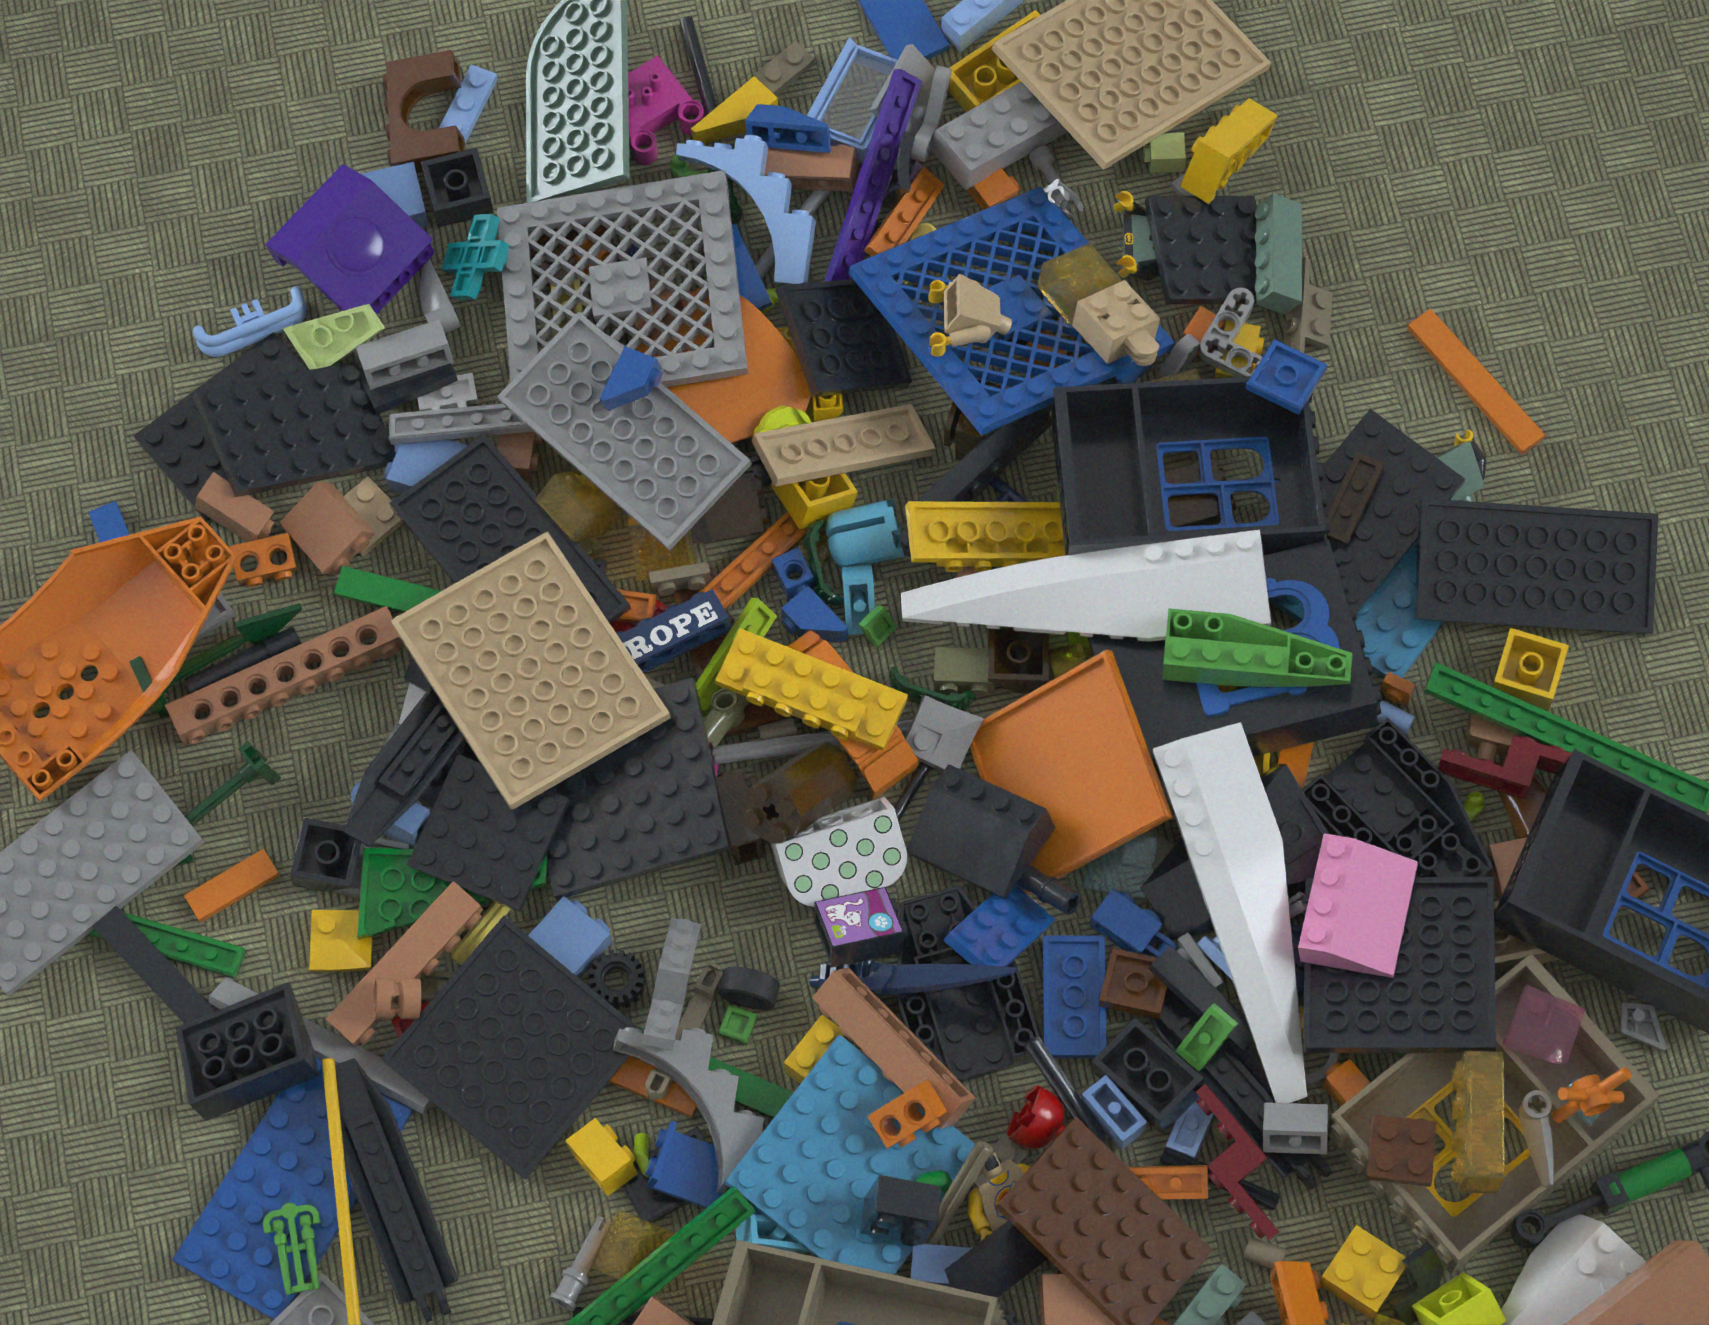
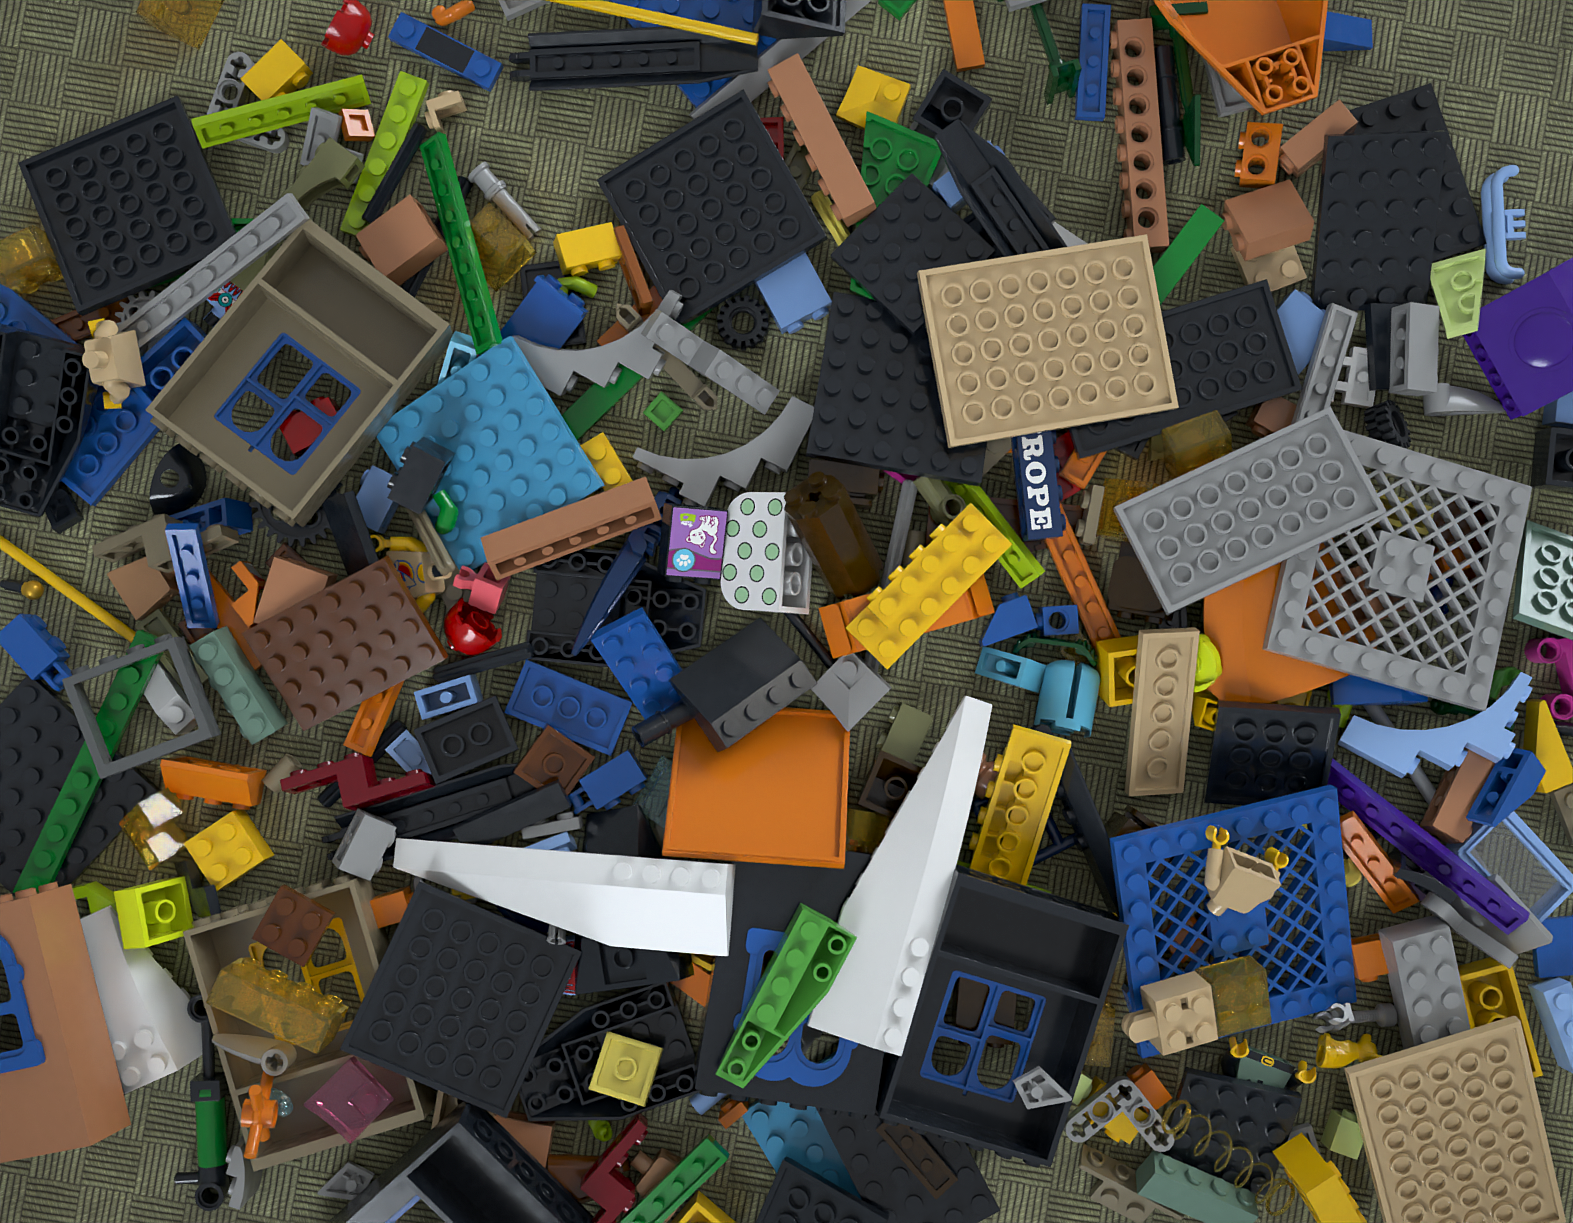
camera: 105 degrees right, 20 degrees up
(223, 748) = (1093, 59): none -> blue plate
(408, 998) = (785, 114): nougat wheel -> none
(475, 257) = (1488, 449): teal plate -> none
(487, 351) = (1387, 424): none -> black tyre
(609, 1099) = (633, 273): none -> dark orange tile
(631, 379) = (1294, 531): blue slope -> none
(731, 899) = (700, 477): none -> light grey arch
(749, 988) = (684, 429): black tyre -> none
(877, 625) = (978, 675): bright green tile -> none
(902, 684) = (877, 711): dark green piece -> none
(906, 1112) = (500, 514): orange brick -> none
(988, 1119) = (485, 590): none -> coral brick
(1095, 184) = (1338, 1054): none -> yellow animal
(1180, 356) = (1128, 1056): light grey beam -> none
(1206, 1037) = (474, 803): bright green plate -> none
(1209, 280) = (1186, 1118): none -> clear yellow piece
(1236, 405) = (1039, 1089): none -> light grey piece
(1286, 376) = (1052, 1149): blue tile -> none
(1357, 907) = (525, 985): bright pink slope -> none
(1400, 795) = (626, 1069): none -> light yellow tile
(1678, 1116) = (245, 1180): none -> light grey slope

